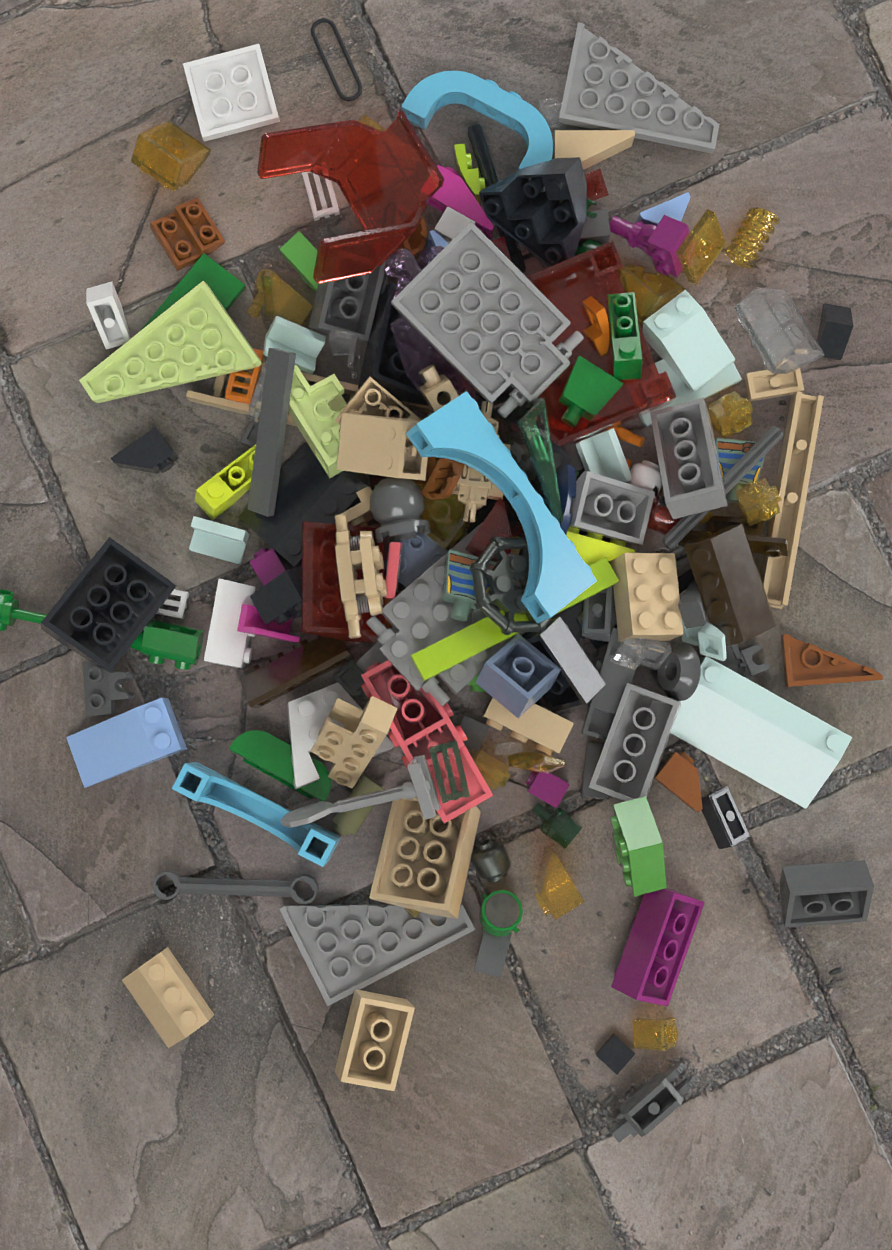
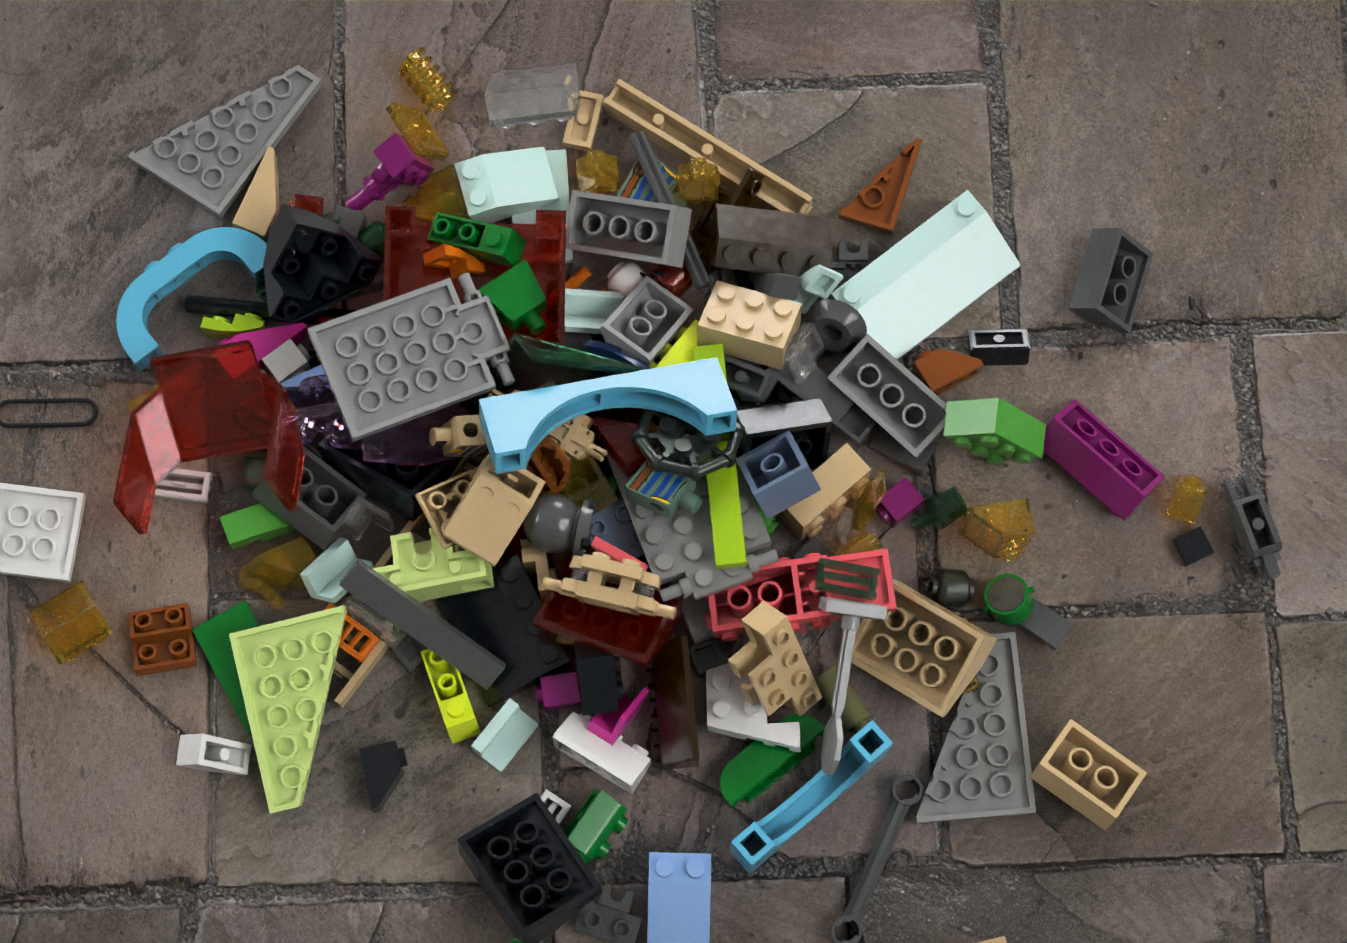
camera: 75 degrees left, 10 degrees down
(673, 208) = (365, 160): light blue slope -> none
(834, 330) = (555, 42): black slope -> none

